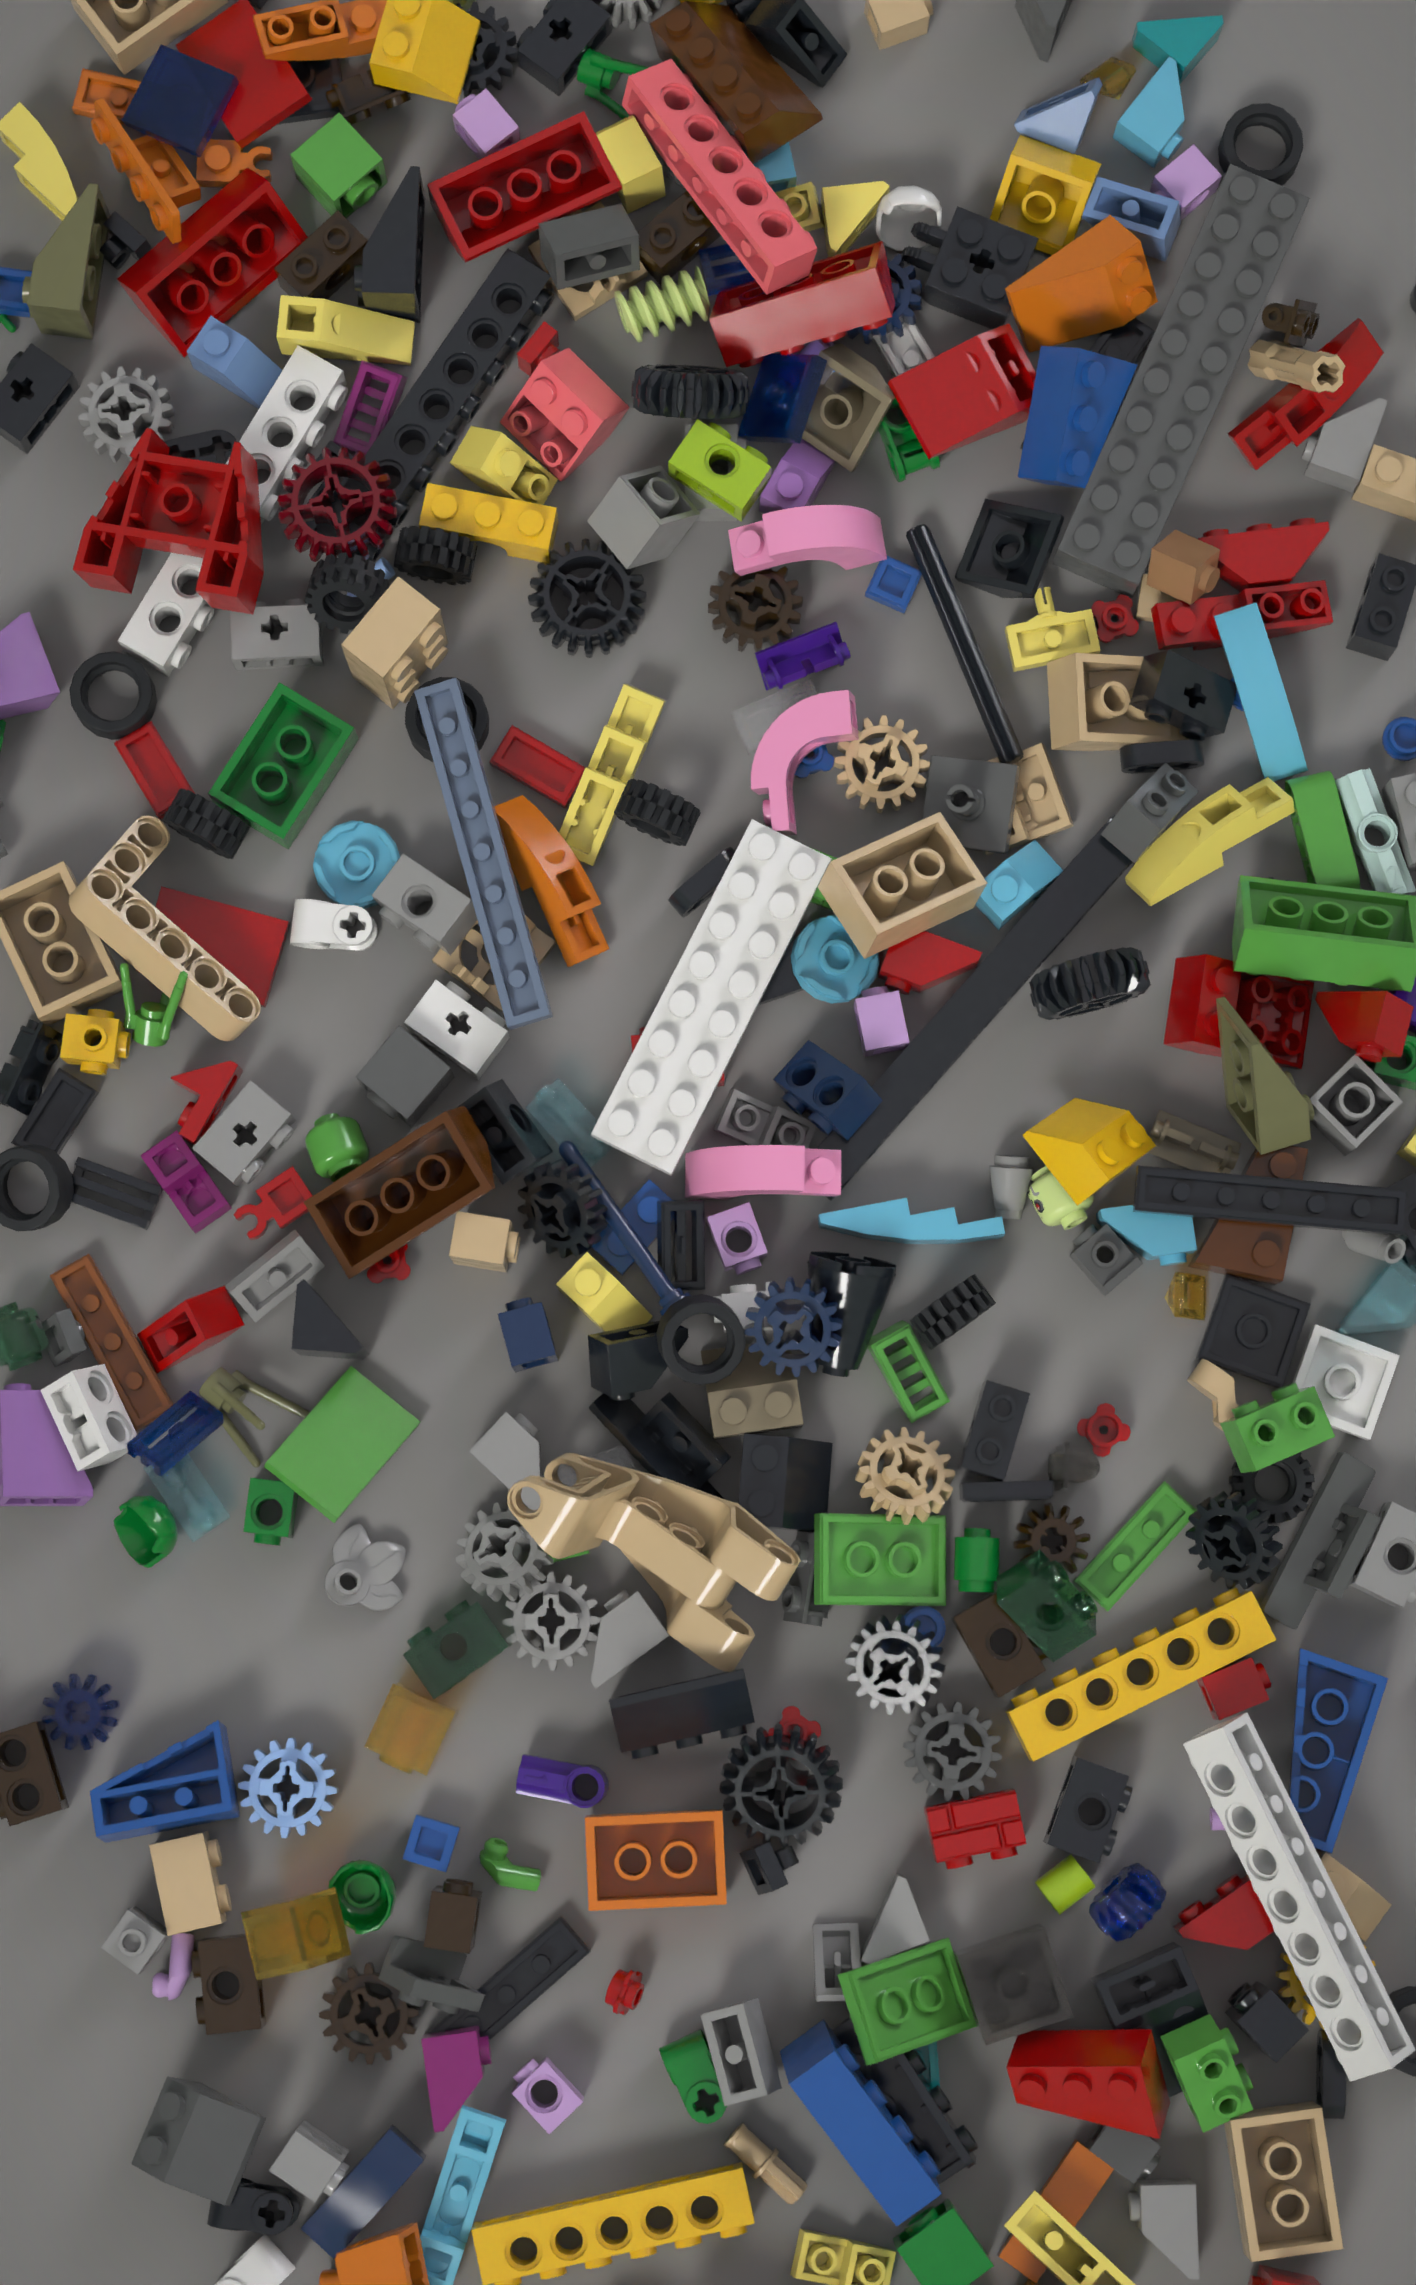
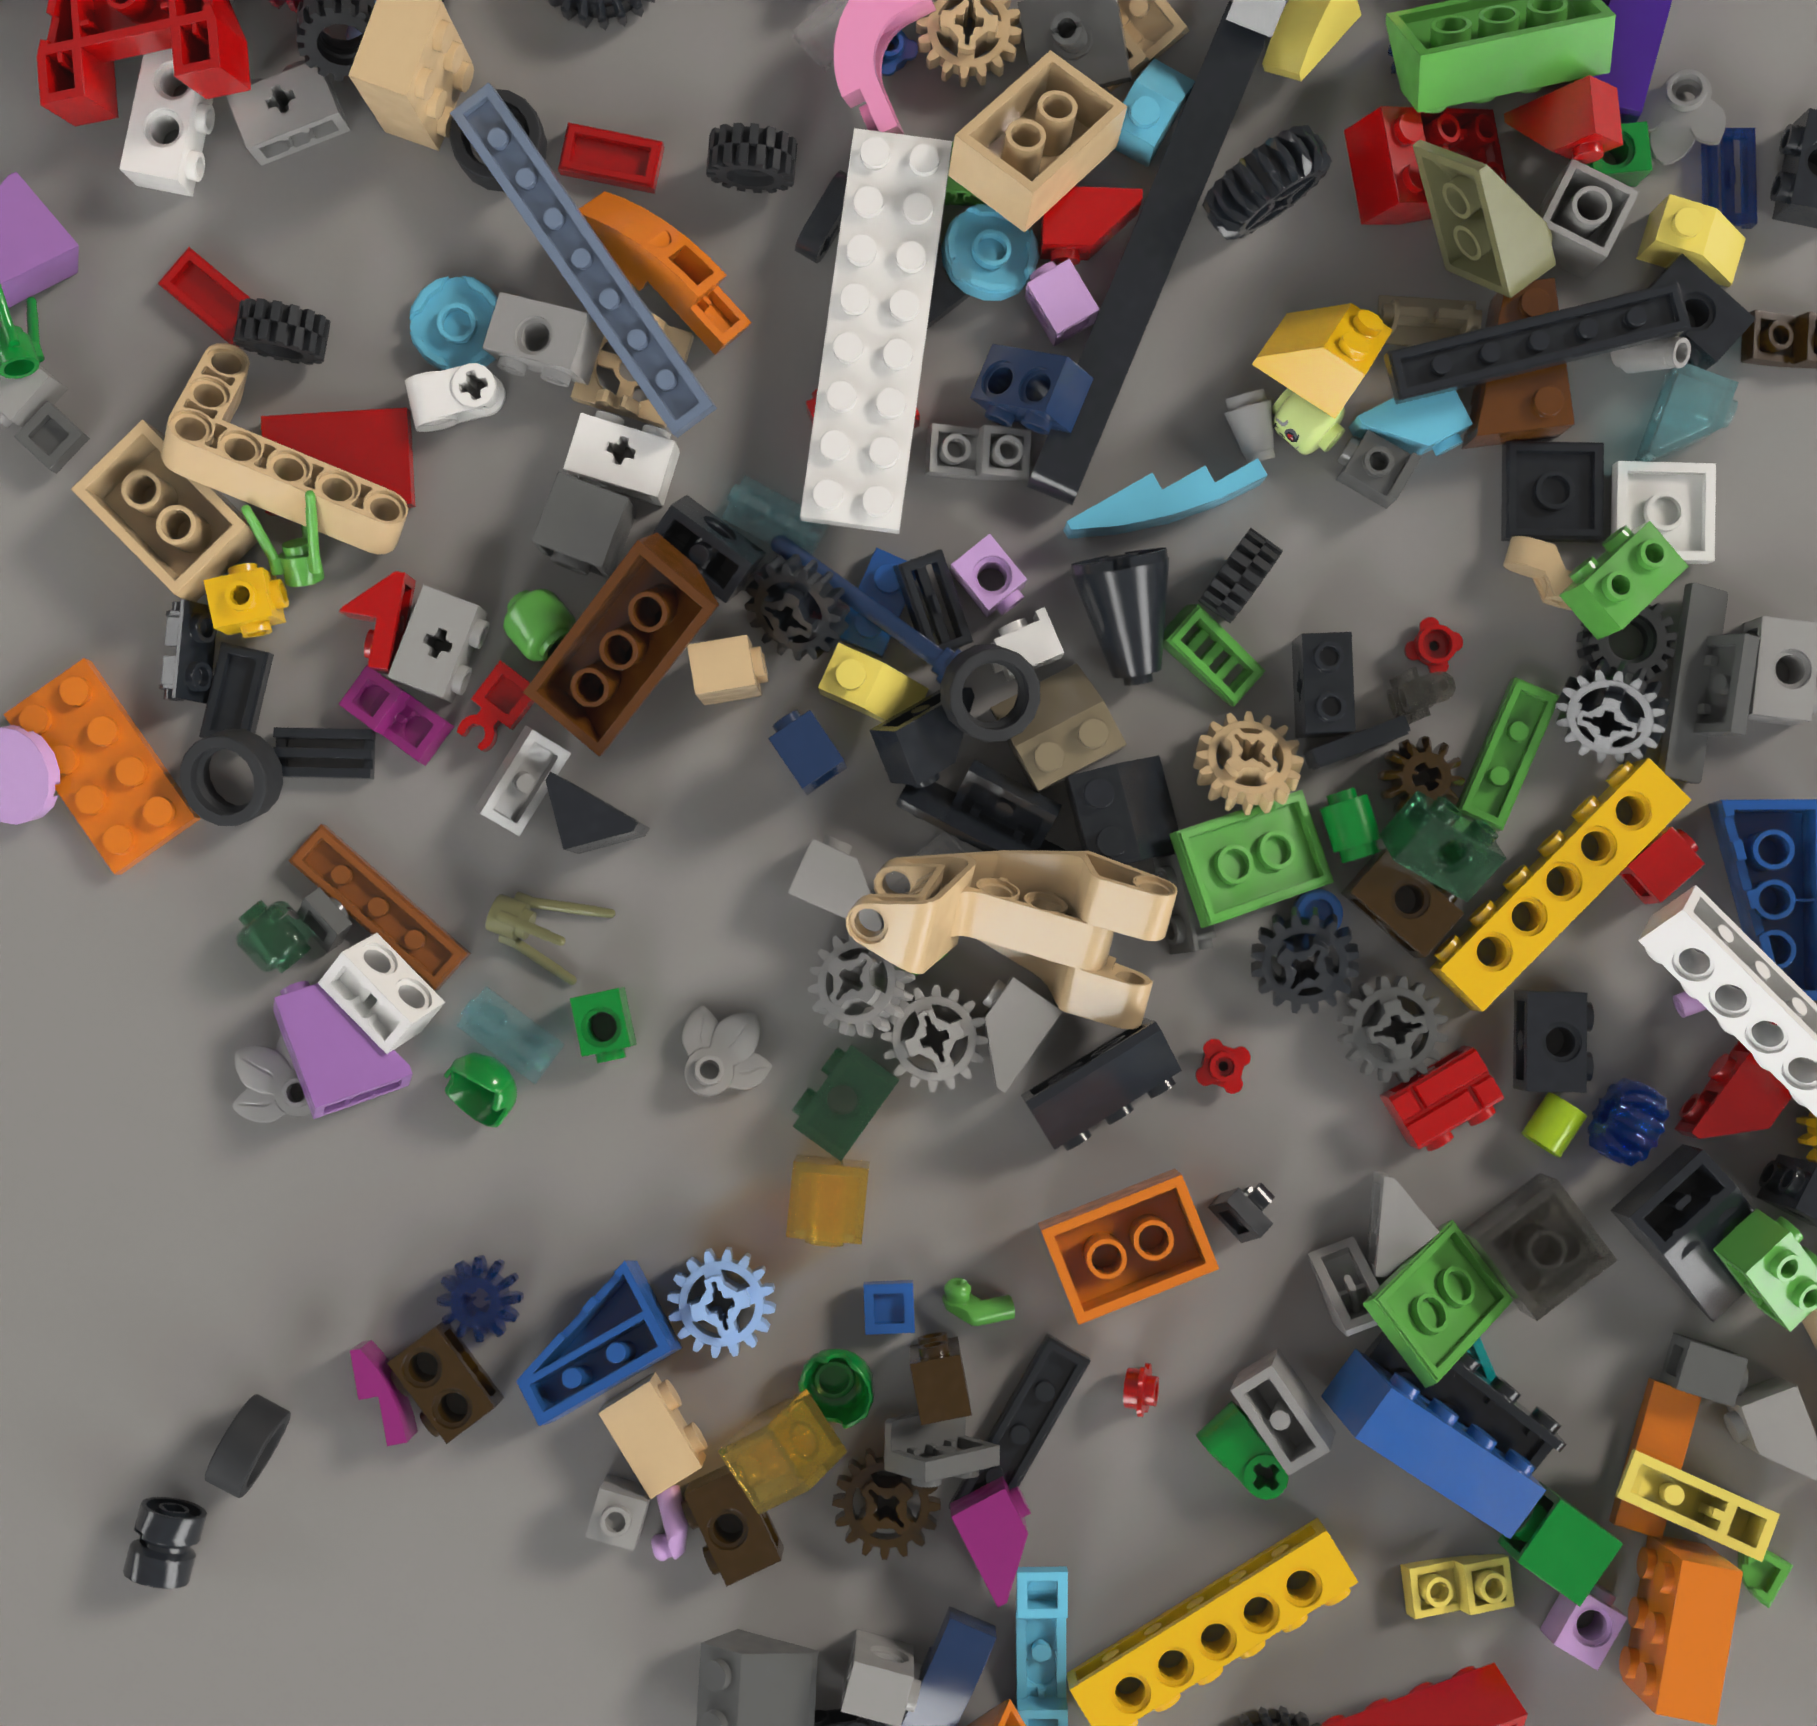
camera: 15 degrees left, 5 degrees up
(95, 667) = (112, 207): black tyre -> none
(180, 1438) = (483, 980): clear blue tile -> none
(190, 1328) = (454, 864): red slope -> none
(284, 765) = (343, 241): green brick -> none
(342, 1444) = (653, 931): bright green tile -> none
(396, 1269) = (647, 730): red plate -> none
(553, 2113) = (1107, 1540): lavender brick -> none
(556, 1780) = (995, 1199): dark purple piece -> none
(609, 770) = (687, 123): light yellow slope -> none
(762, 1170) = (989, 494): bright pink arch -> none
(766, 2164) = (1344, 1513): tan axle -> none
(780, 1314) = (1103, 654): dark blue gear -> none
(798, 1784) = (1190, 1140): black gear -> none
(1092, 2077) = (1656, 1314): red wedge -> none
(1187, 1296) = (1473, 478): clear yellow slope -> none

